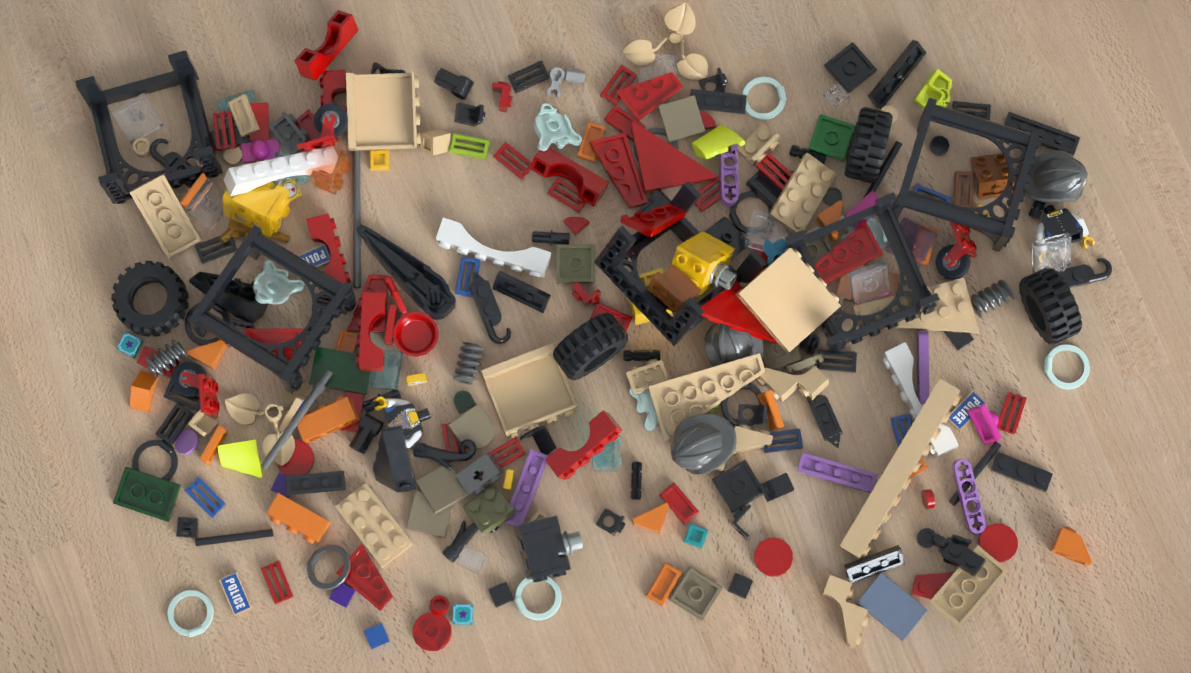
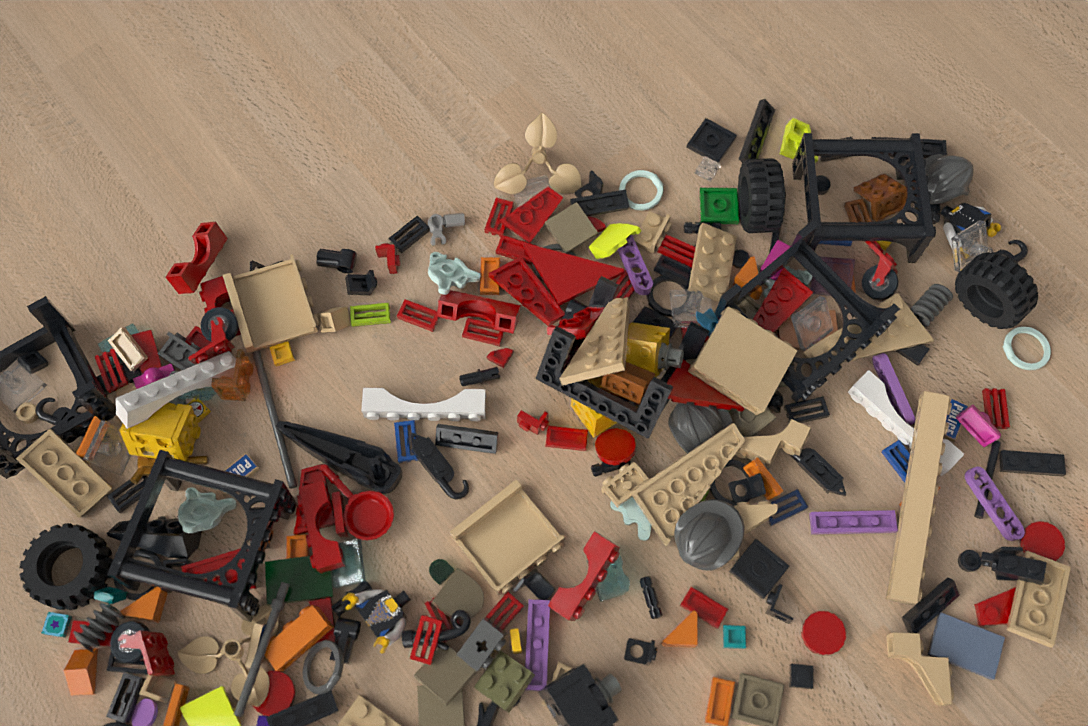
camera: 20 degrees left, 10 degrees down
(156, 100) = (32, 361): none -> black tile
(180, 334) = (110, 595): none -> teal tile
(322, 231) = (240, 440): red arch -> none
(353, 458) = (337, 673): none -> dark grey piece
(393, 461) = (383, 661): black wedge -> none
(416, 379) = (383, 563): yellow tile -> none
(426, 469) = (432, 621): none -> red tile
(468, 363) = (433, 528): dark grey piece -> none
(575, 264) = (513, 394): olive plate -> none
(590, 346) = (557, 468): black tyre -> none
(649, 341) = (615, 446): none -> red tile
(663, 252) = (603, 347): none -> tan wing
(777, 487) = (800, 556): black bracket -> none
(804, 364) = (779, 421): dark tan tile -> none
(928, 499) = (955, 519): red tile -> none

